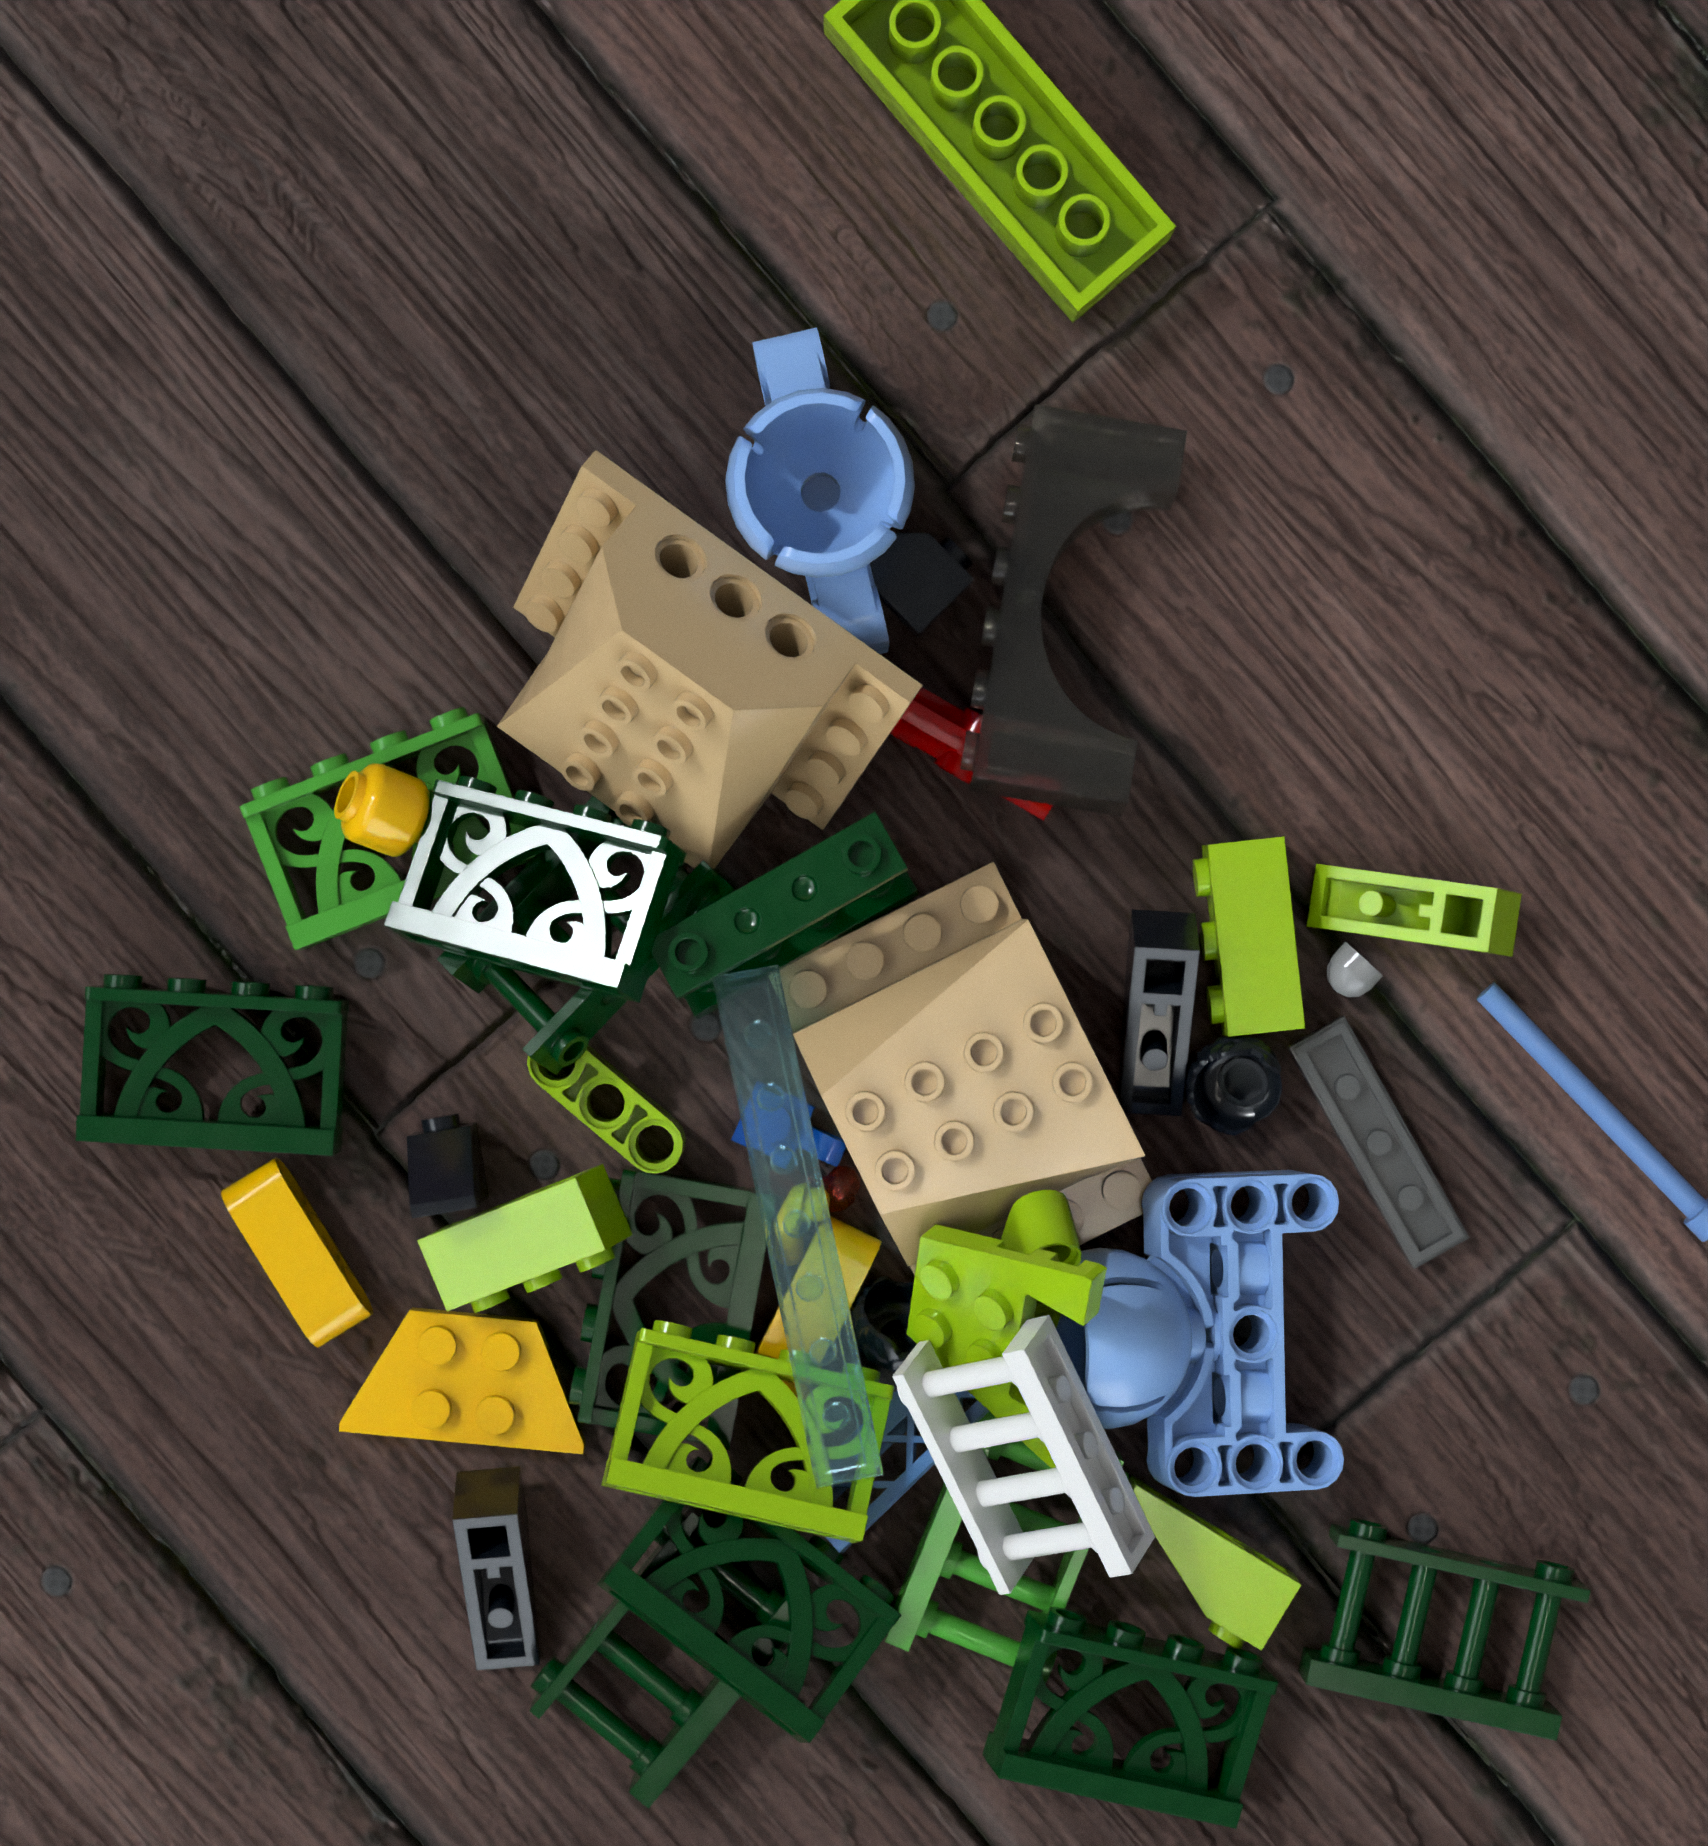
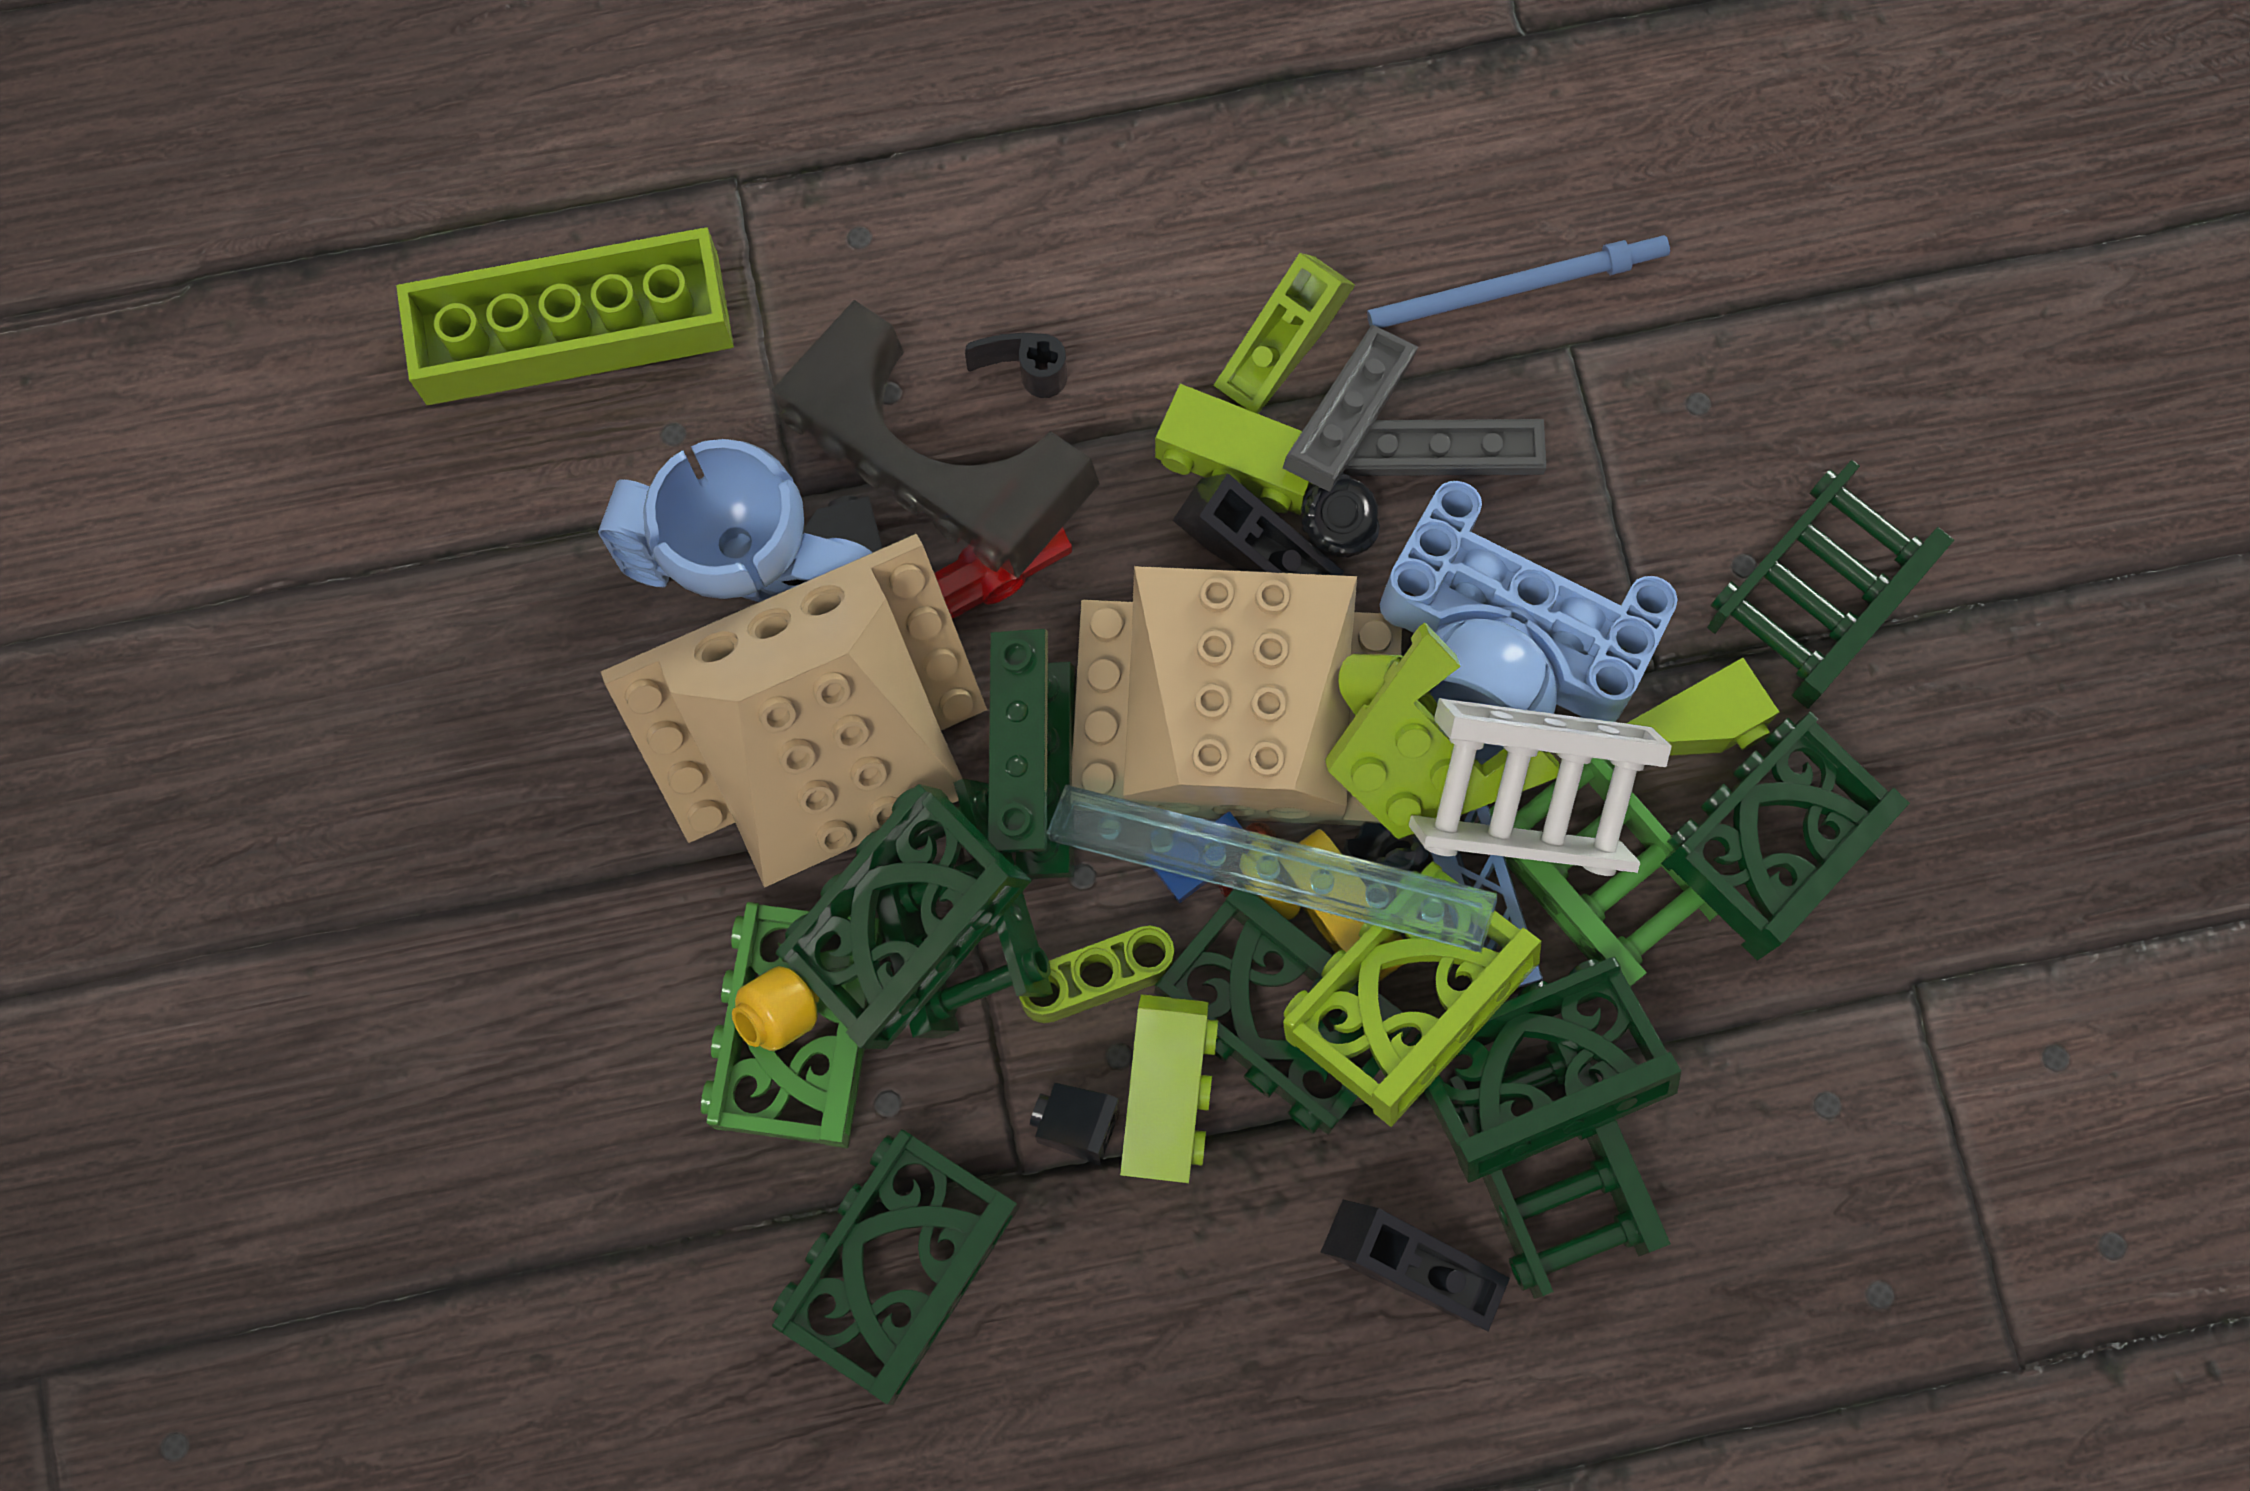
camera: 60 degrees left, 15 degrees down
(297, 1252) = (1077, 1282): yellow beam -> none
(467, 1383) = (1255, 1209): yellow wing -> none
(1240, 649) = (1030, 351): none -> black panel
(1351, 973) = (1303, 396): light grey hinge -> none
(1360, 1031) = (1350, 408): none -> dark grey tile

